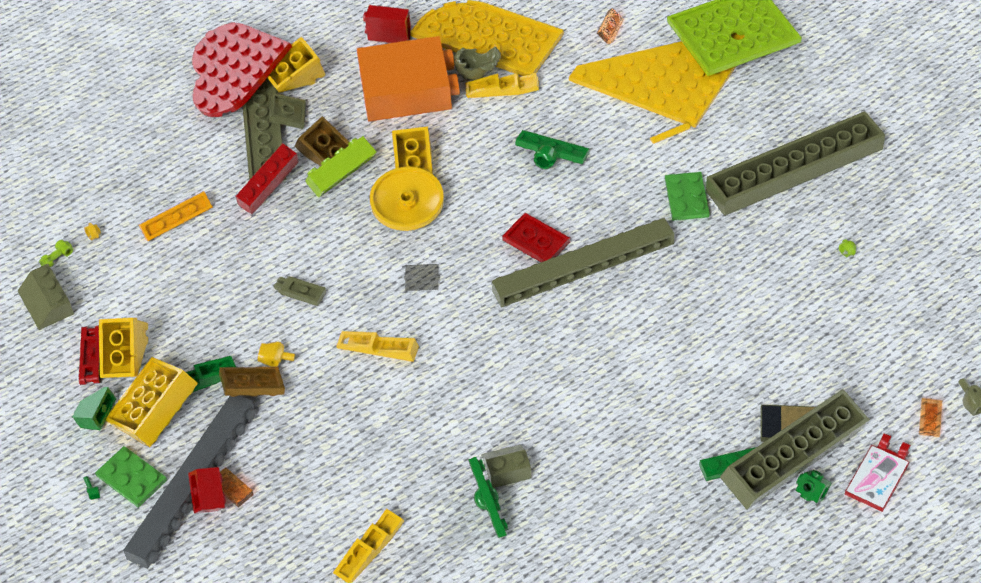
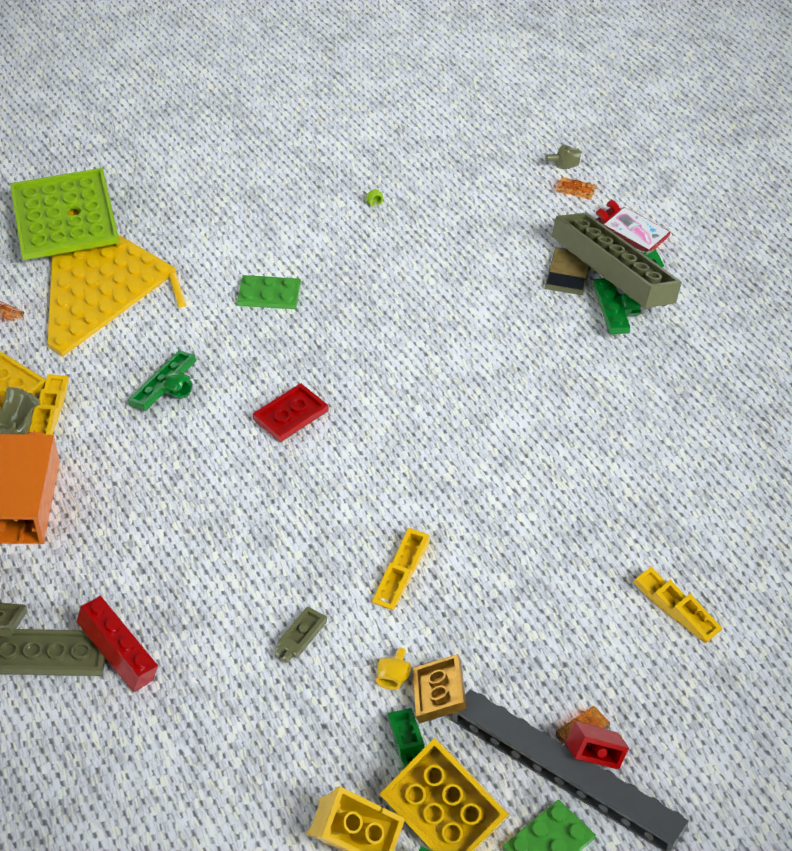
camera: 85 degrees left, 5 degrees down
(175, 216) = (132, 763): light orange plate -> none
(320, 141) = (74, 583): pearl gold slope -> none
(340, 166) = (120, 570): lime brick -> none
(406, 198) = (197, 511): yellow dish -> none
(412, 148) = (138, 501): yellow slope -> none
(421, 277) = (310, 519): clear smoke piece -> none
(487, 497) = (635, 485): green plate -> none
(507, 465) = (587, 474): olive slope -> none
(582, 262) = (337, 381): olive brick -> none
(794, 163) = (263, 208): olive brick -> none

